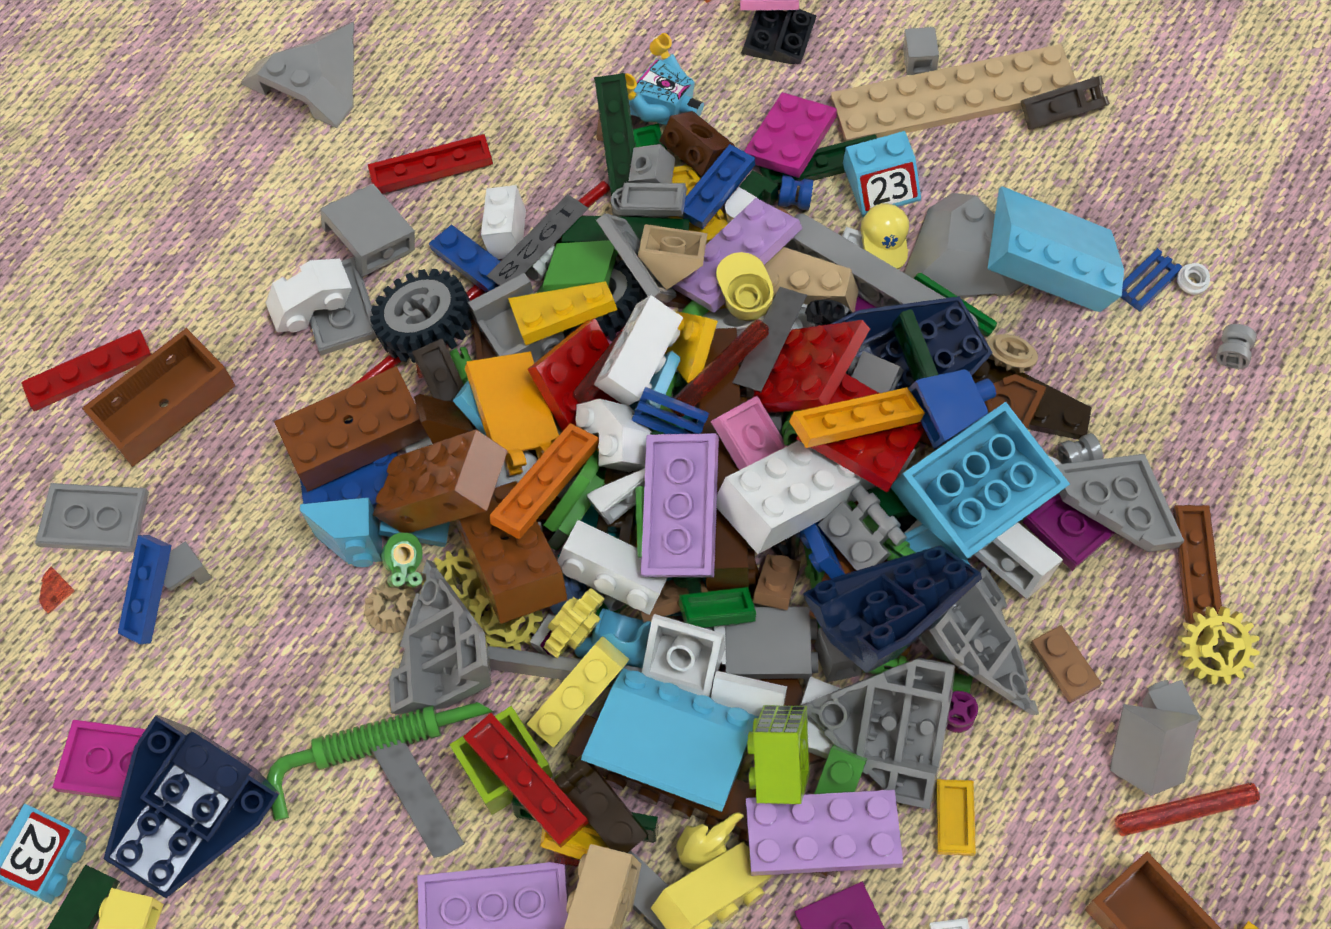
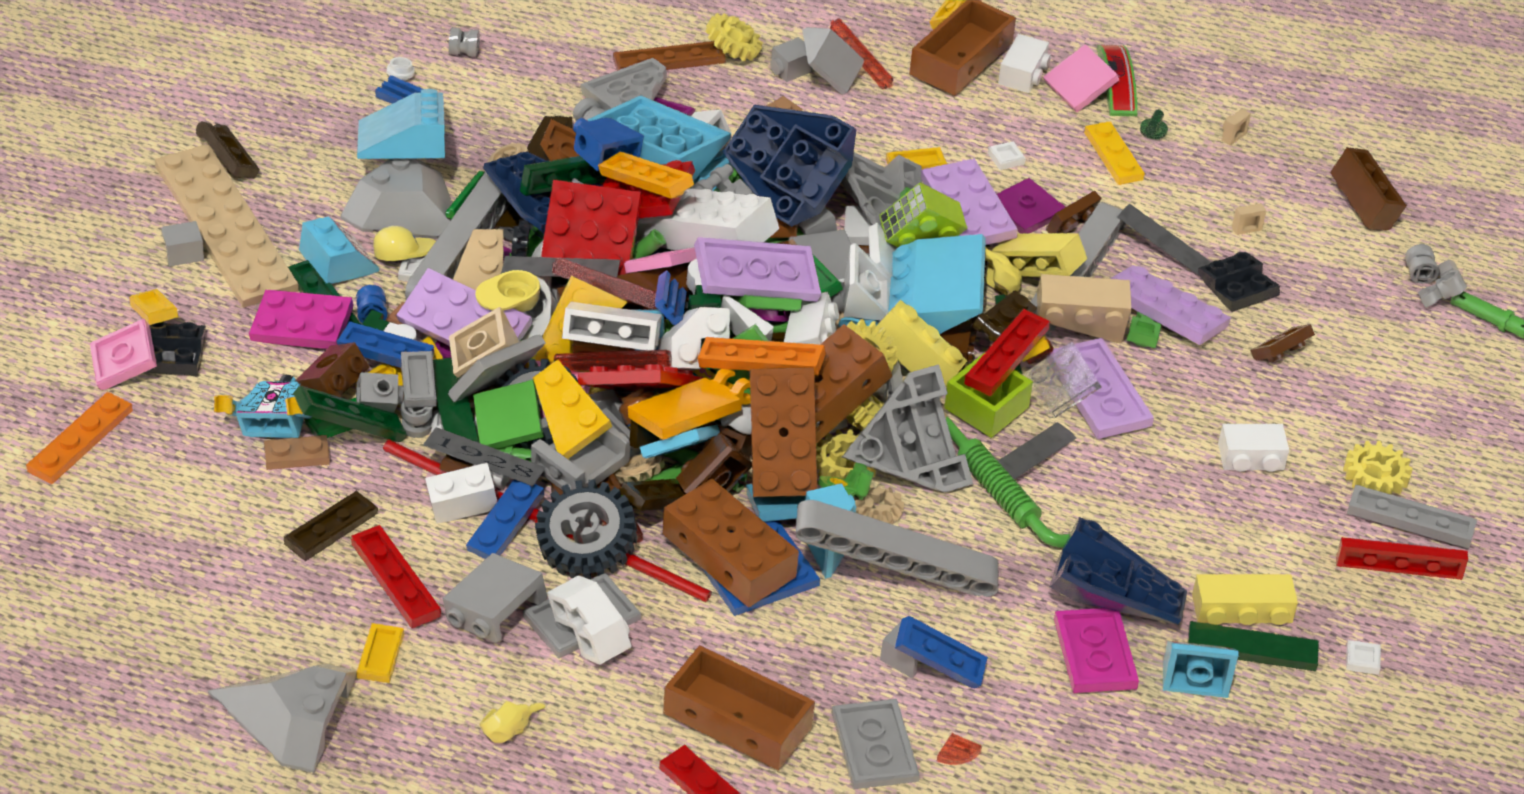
camera: 115 degrees left, 20 degrees down
(230, 219) = (508, 720): none -> light yellow piece
(272, 574) = (896, 548): none -> light grey beam
(349, 144) = (380, 653): none -> yellow tile
(504, 857) = (1062, 380): none -> clear plate
(513, 128) = (330, 525): none -> dark brown tile
(831, 20) = (153, 306): none -> yellow tile

